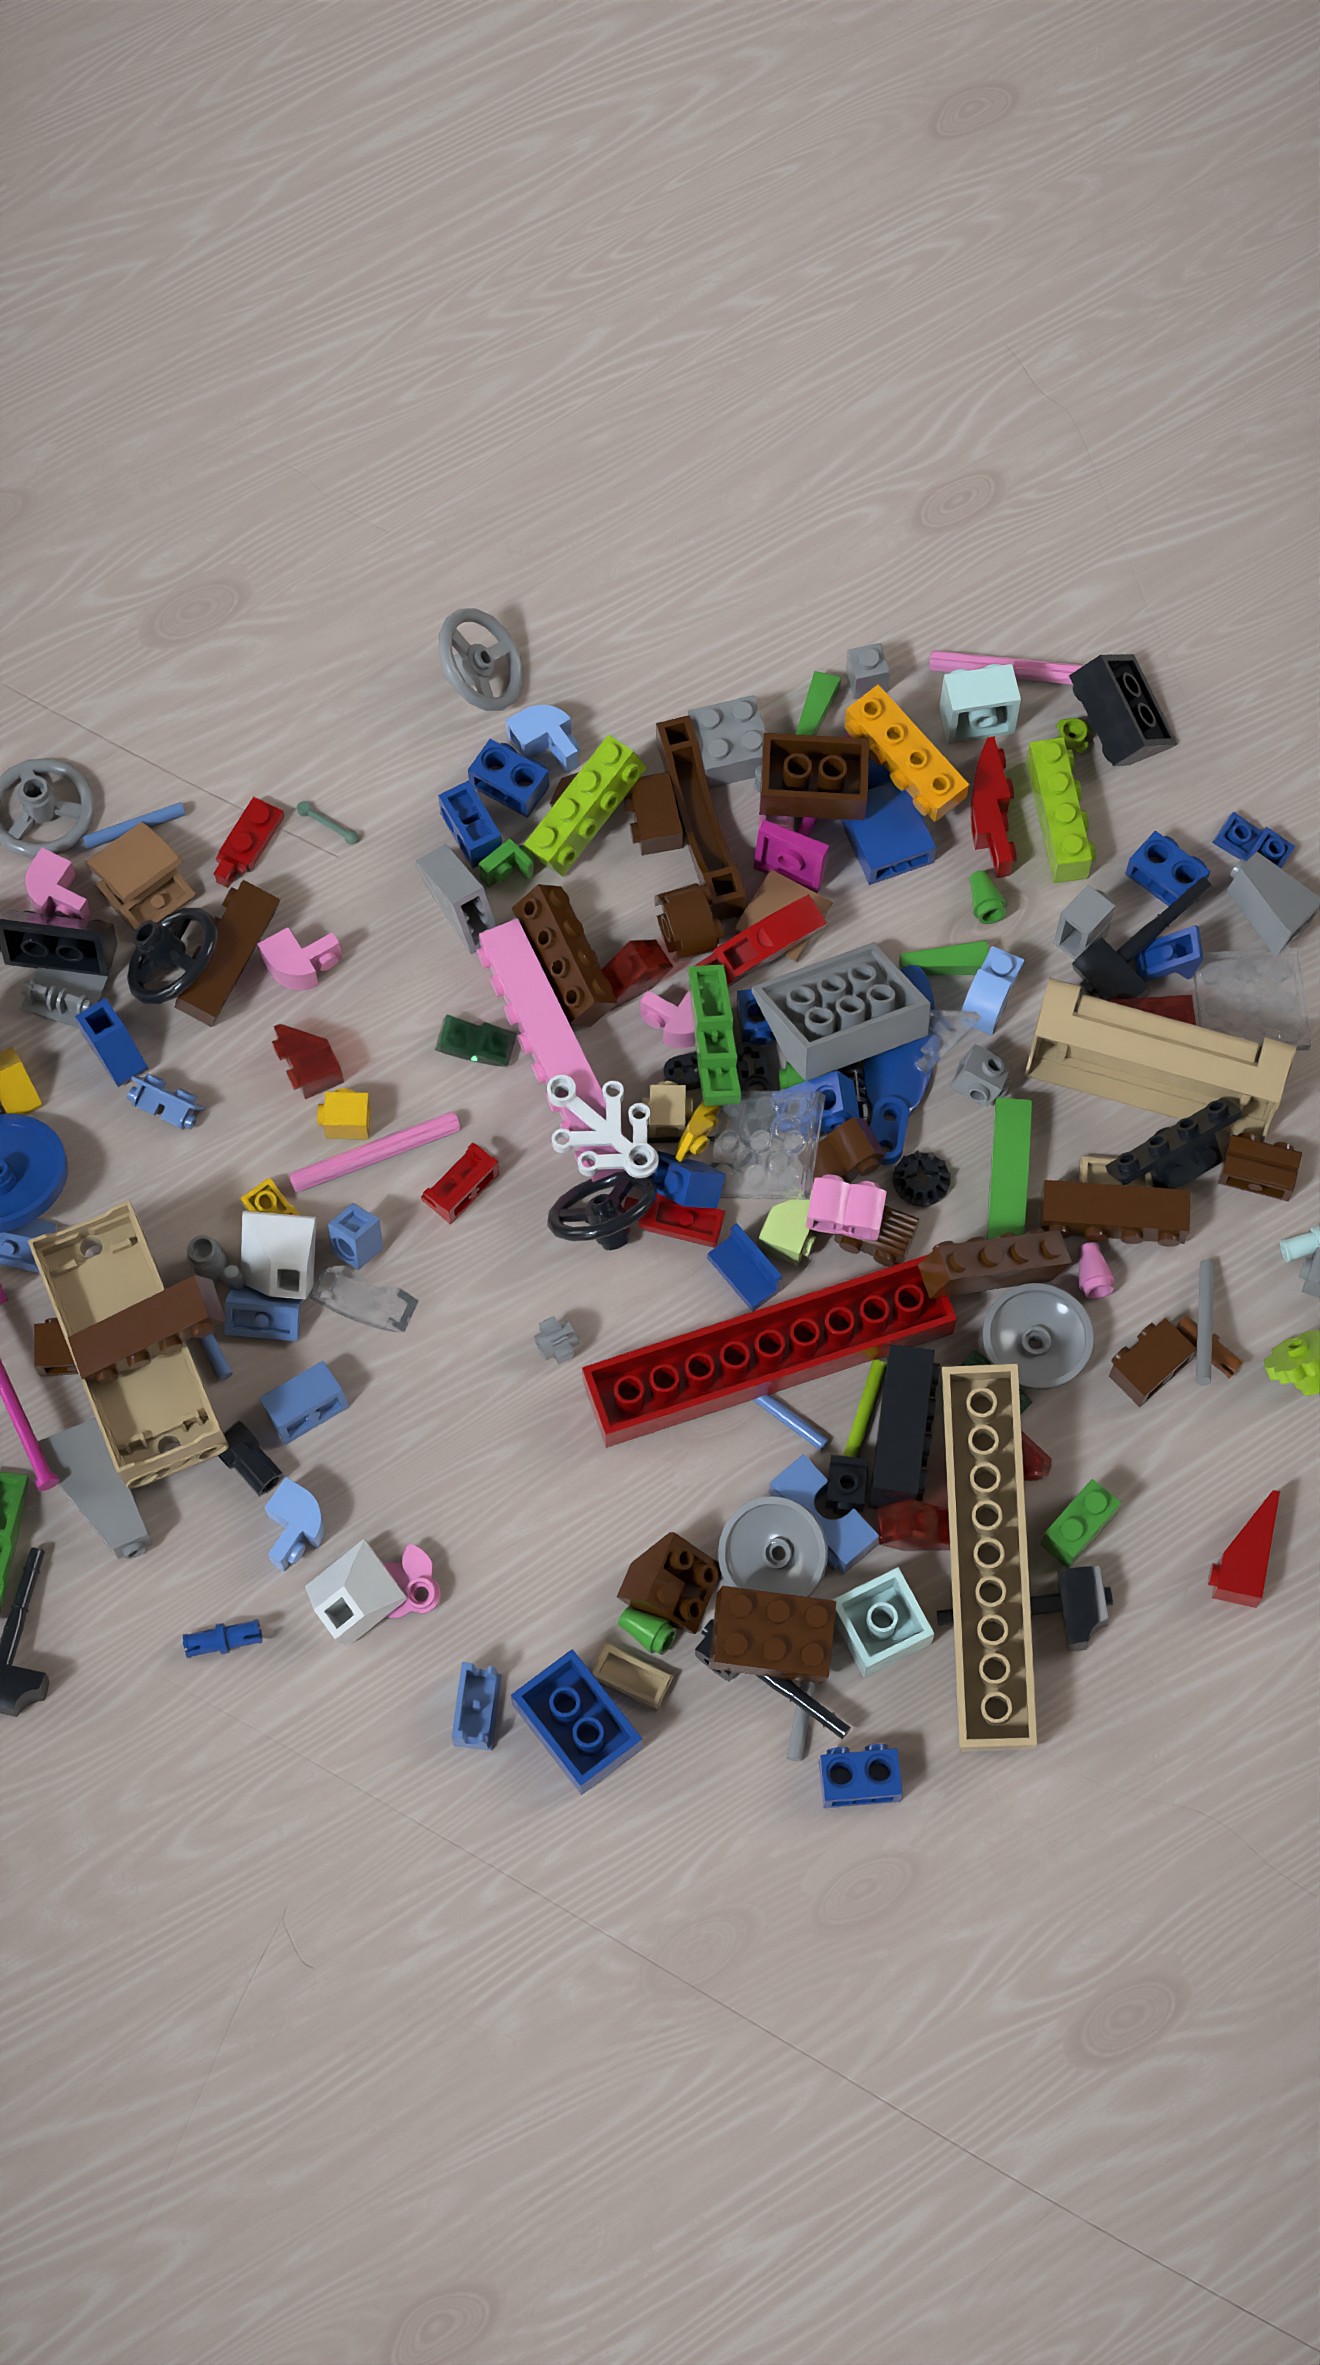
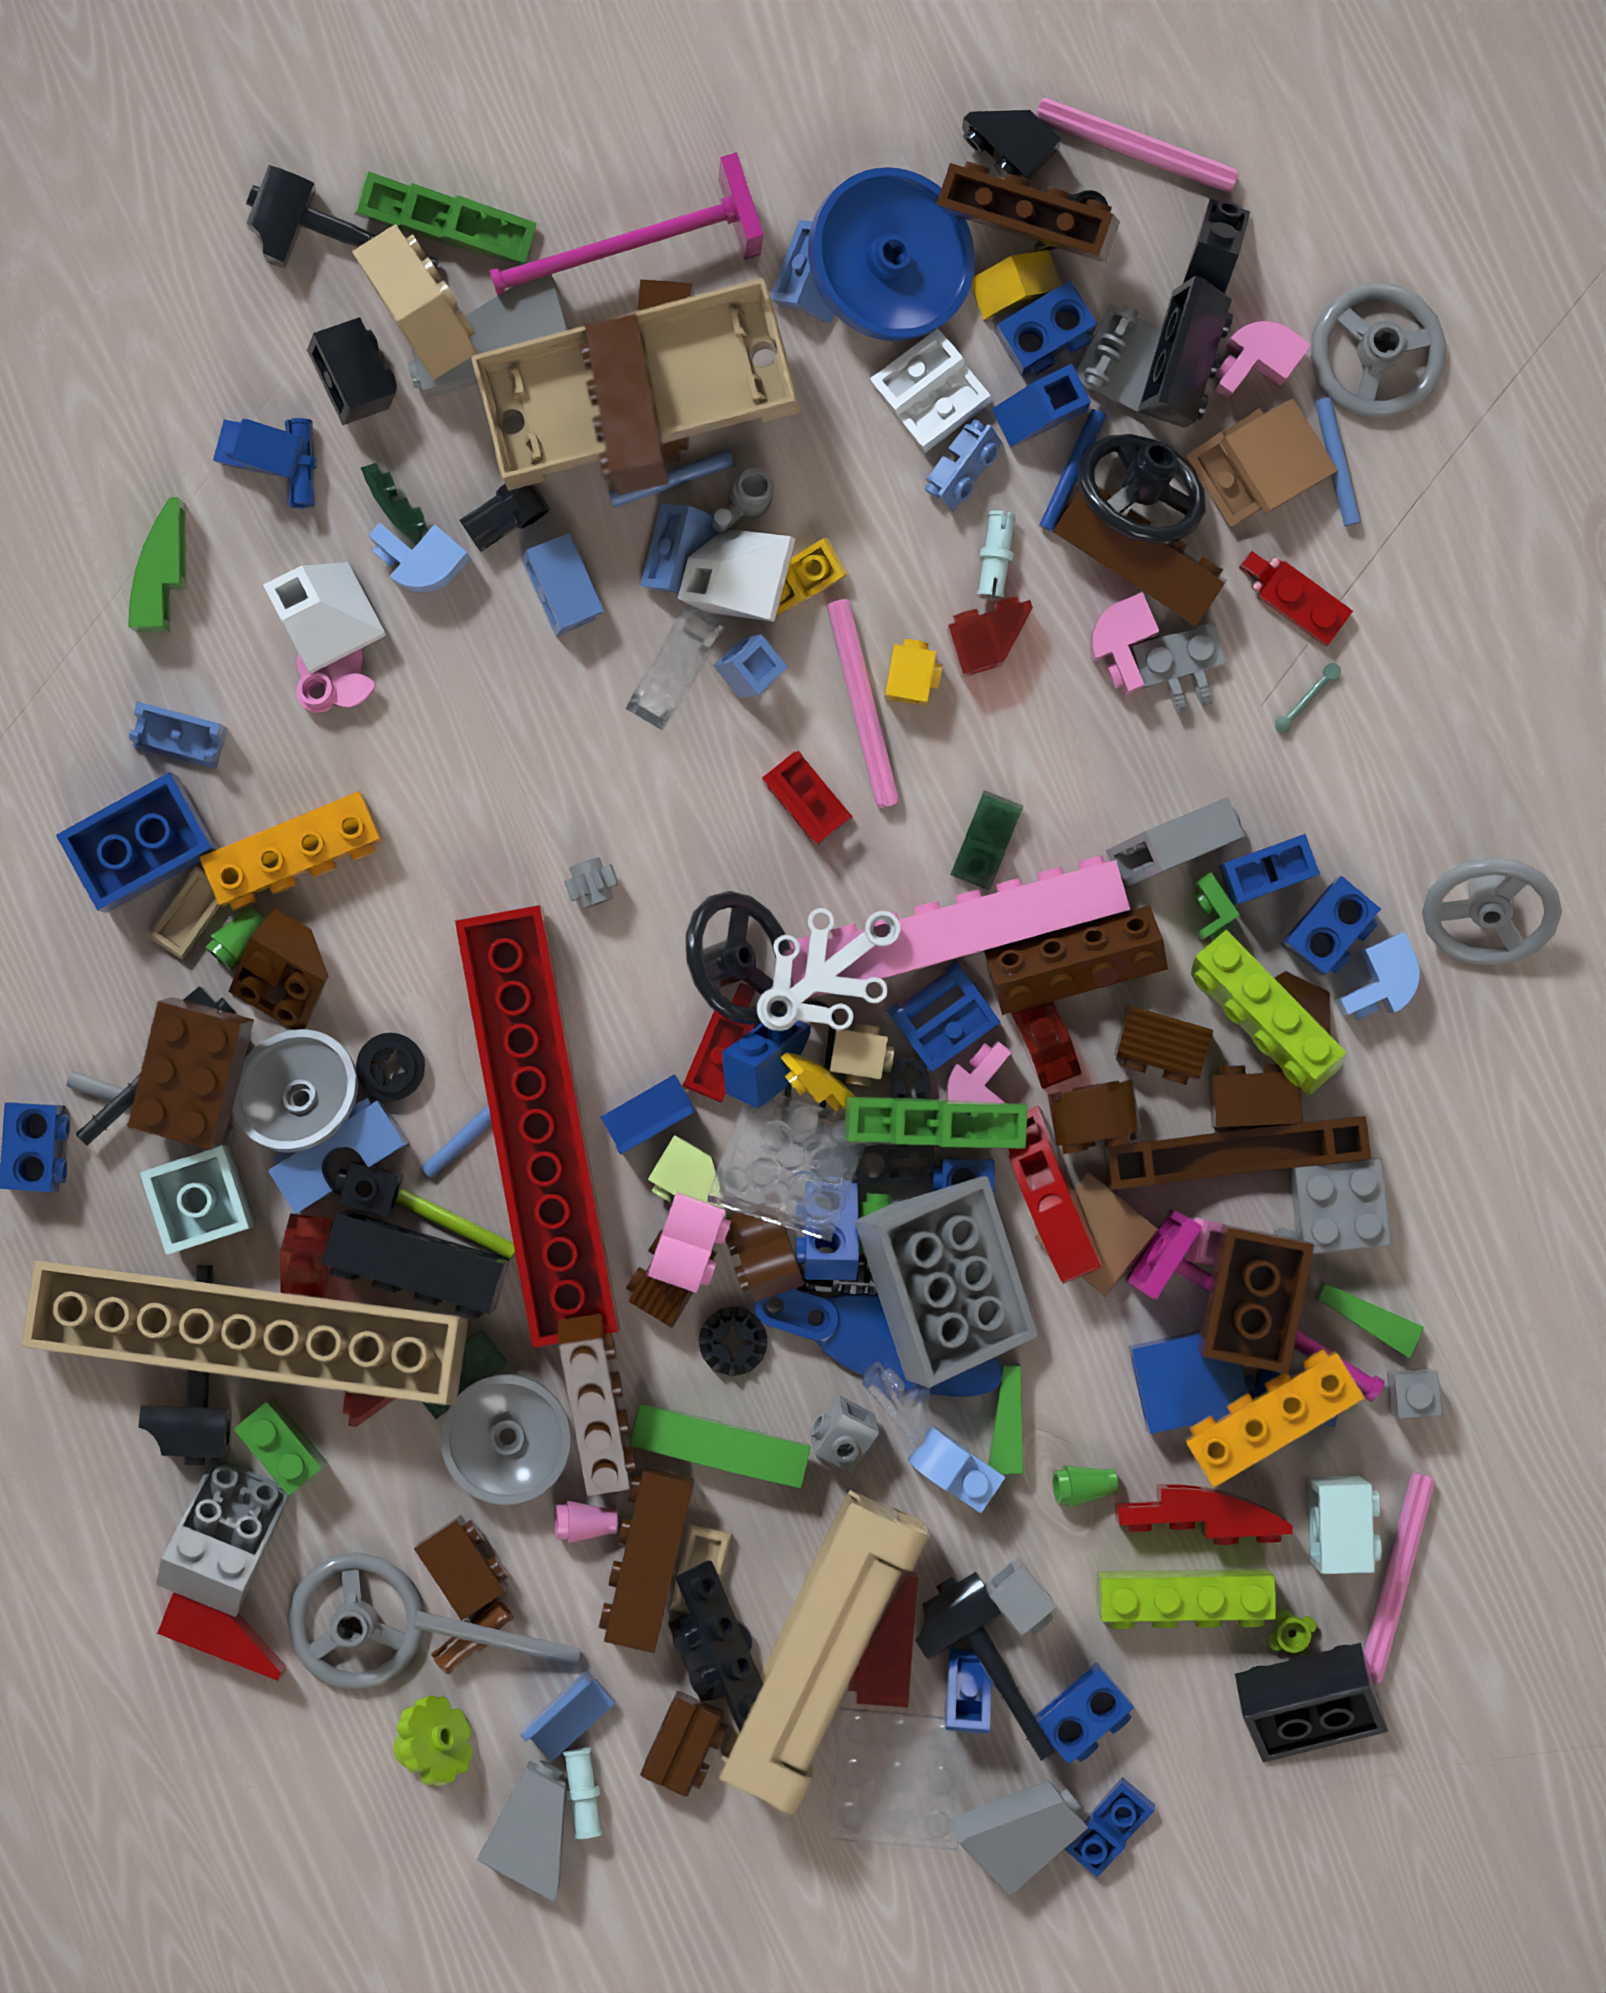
camera: 95 degrees right, 20 degrees up
(42, 1053) = (1040, 321): none -> blue brick
(71, 1541) = (417, 300): none -> tan brick
(106, 1135) = (931, 390): none -> white slope
(136, 1601) = (352, 370): none -> black brick
(163, 1019) = (1070, 474): none -> blue bar
(213, 1673) = (258, 448): none -> blue slope
(239, 1064) = (996, 555): none -> light aqua pin
(260, 1541) = (403, 516): none -> clear green slope
(304, 913) = (1180, 656): none -> light grey hinge
(330, 1744) = (159, 569): none -> bright green slope
(564, 1591) = (291, 850): none -> light orange brick
(622, 885) = (1162, 1044): none -> reddish brown brick
(633, 1044) = (950, 1029): none -> blue plate
(727, 1472) = (373, 1078): none -> black gear
(1169, 1557) = (222, 1537): none -> light grey slope
(1215, 1430) = (342, 1633): none -> light grey piece
(1256, 1262) = (568, 1715): none -> medium blue panel

